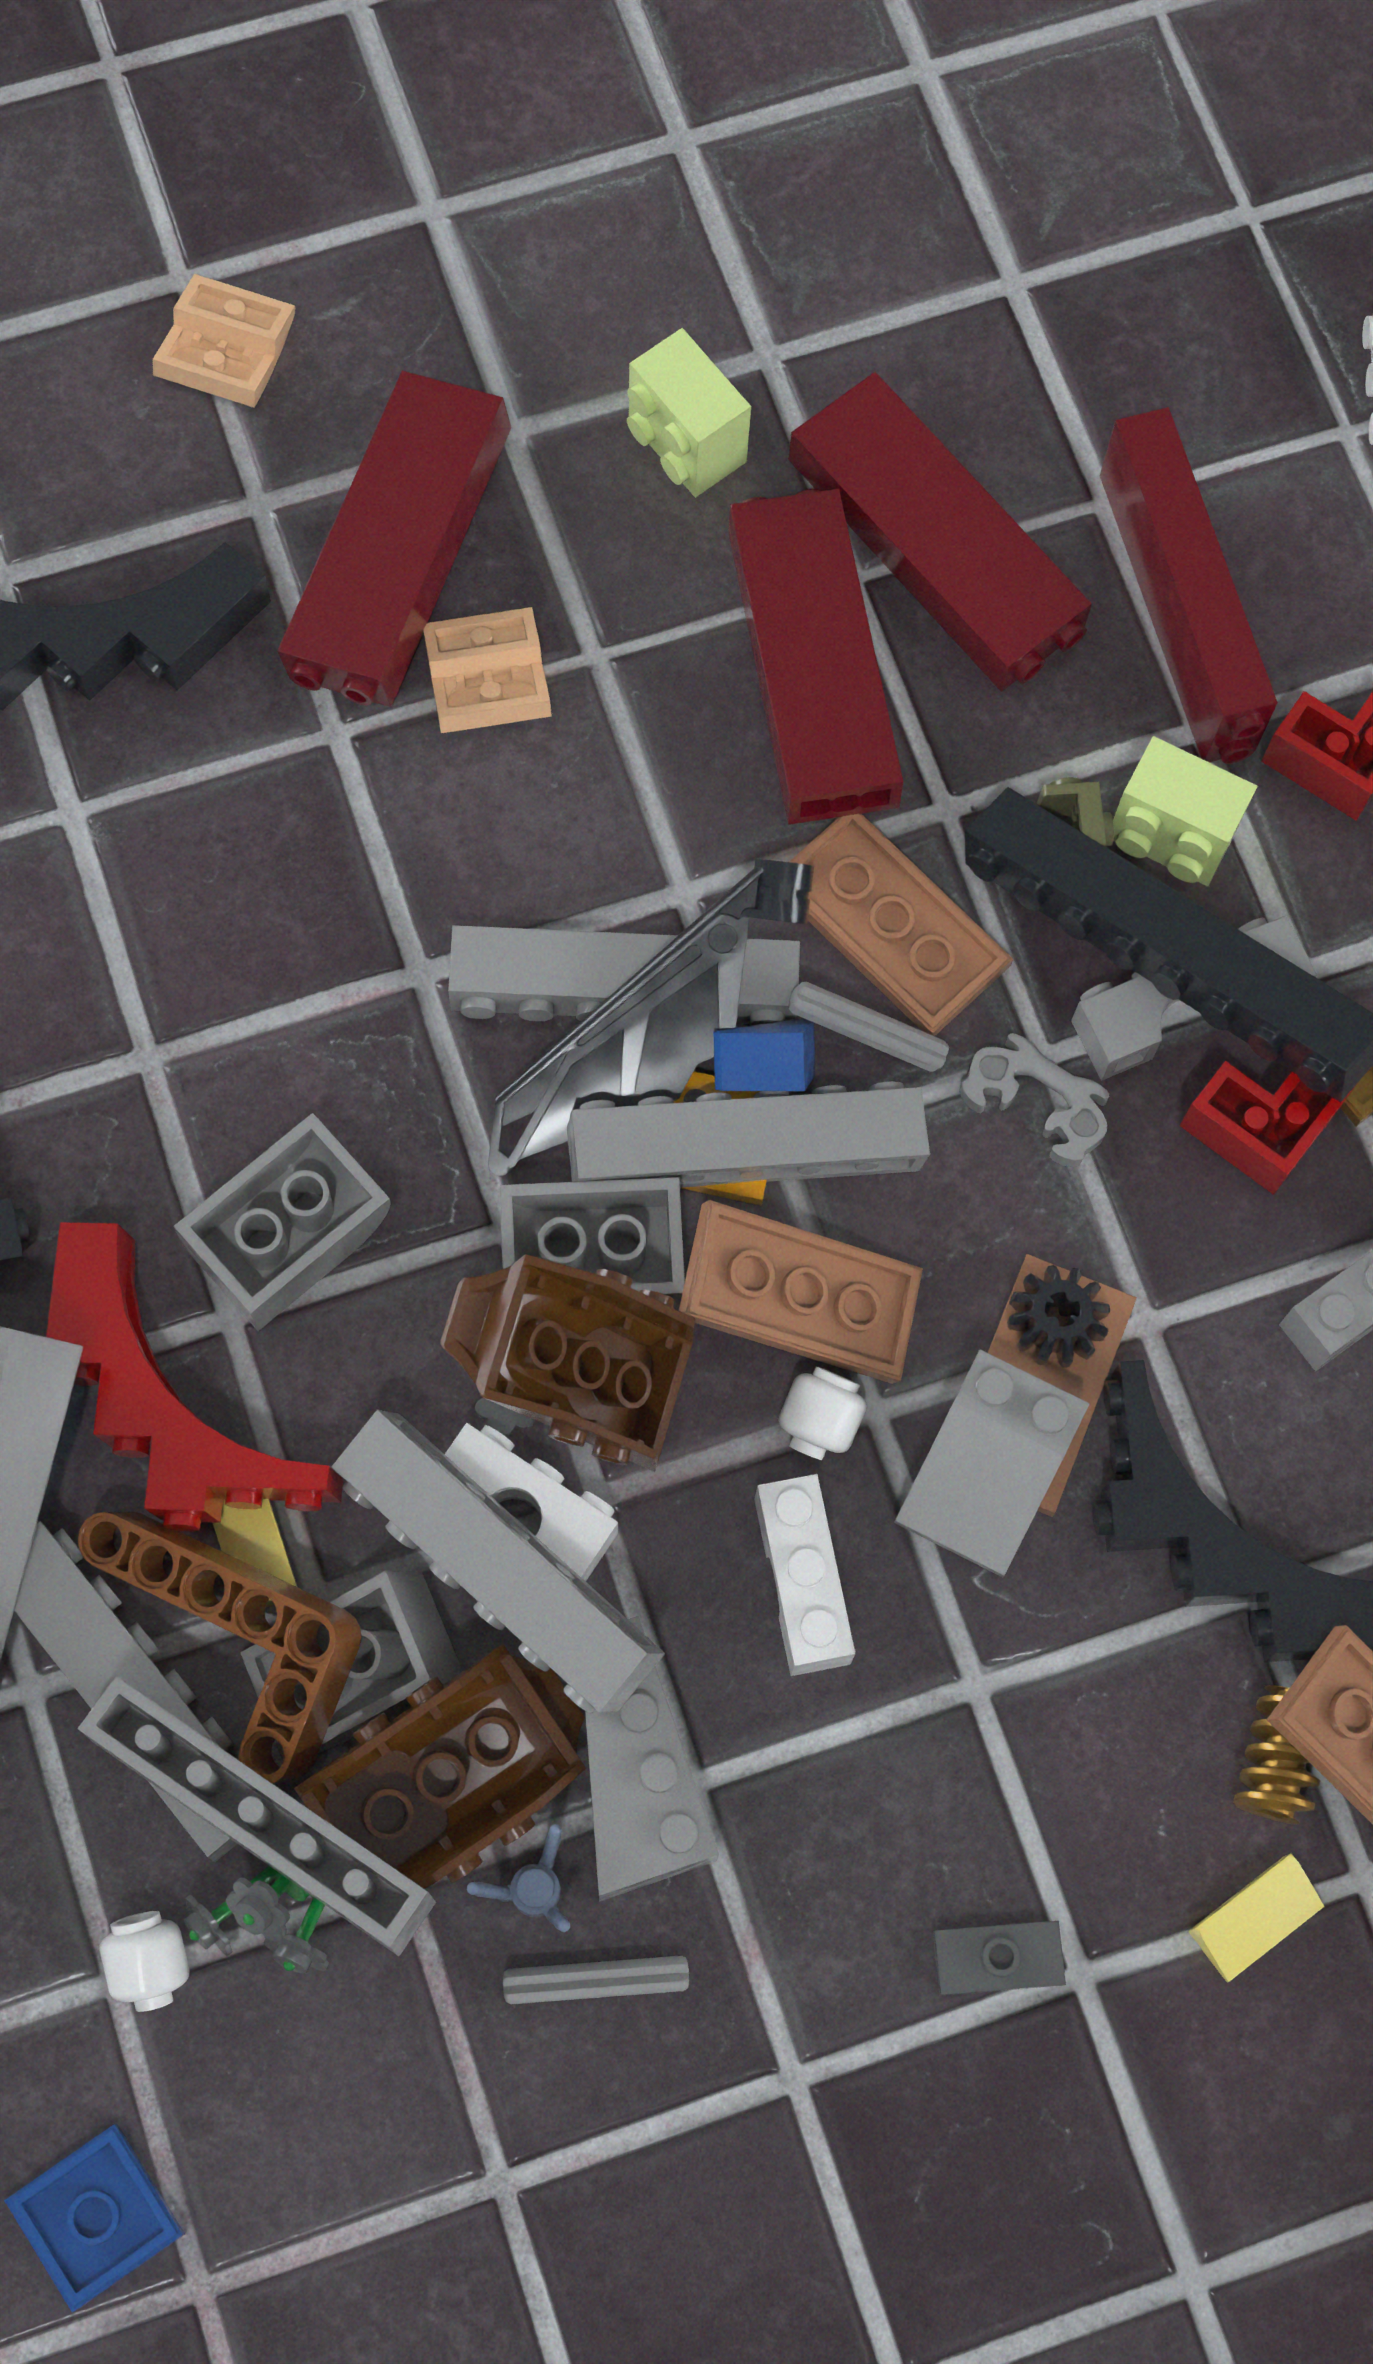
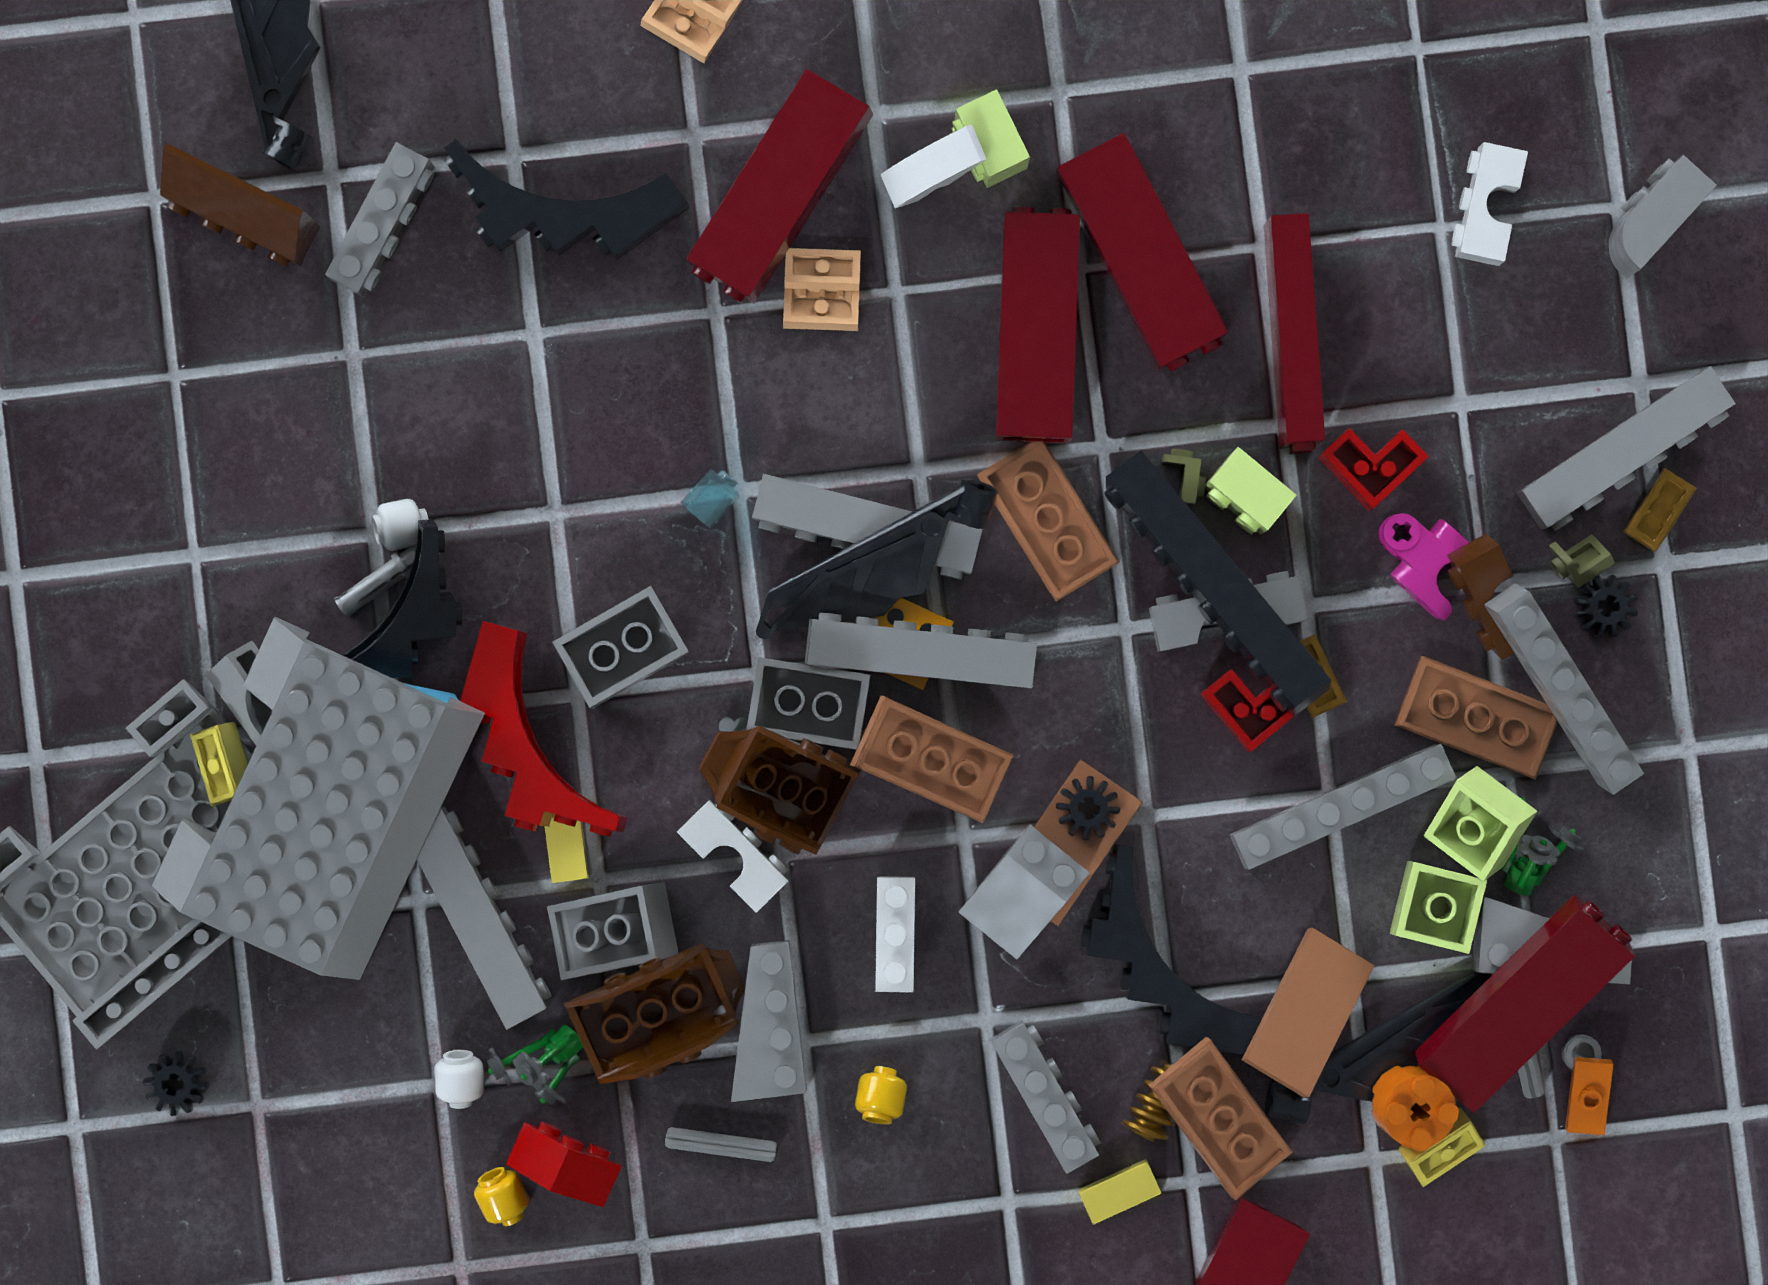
camera: 15 degrees right, 15 degrees up
(94, 2217) = (406, 1215): blue tile -> none
(243, 1614) = (551, 892): dark orange beam -> none
(249, 2145) = (501, 1196): none -> yellow head
(258, 1816) = (539, 1018): light grey brick -> none
(344, 2062) = (564, 1164): none -> red brick
(381, 983) = (711, 497): none -> clear light blue brick
(497, 1562) = (708, 894): light grey brick -> none
(534, 1887) = (693, 1086): sand blue plant -> none
(614, 458) = (933, 167): none -> white slope
(765, 1057) = (945, 603): blue slope -> none
(822, 1413) = (929, 835): white head -> none
(839, 1840) = (881, 1095): none -> yellow head
(868, 1026) = (1014, 593): light grey axle -> none
(999, 1958) = (960, 1182): dark grey plate -> none
(1079, 1127) = (1135, 682): light grey helmet -> none
(1102, 1784) = (1044, 1097): none -> light grey brick

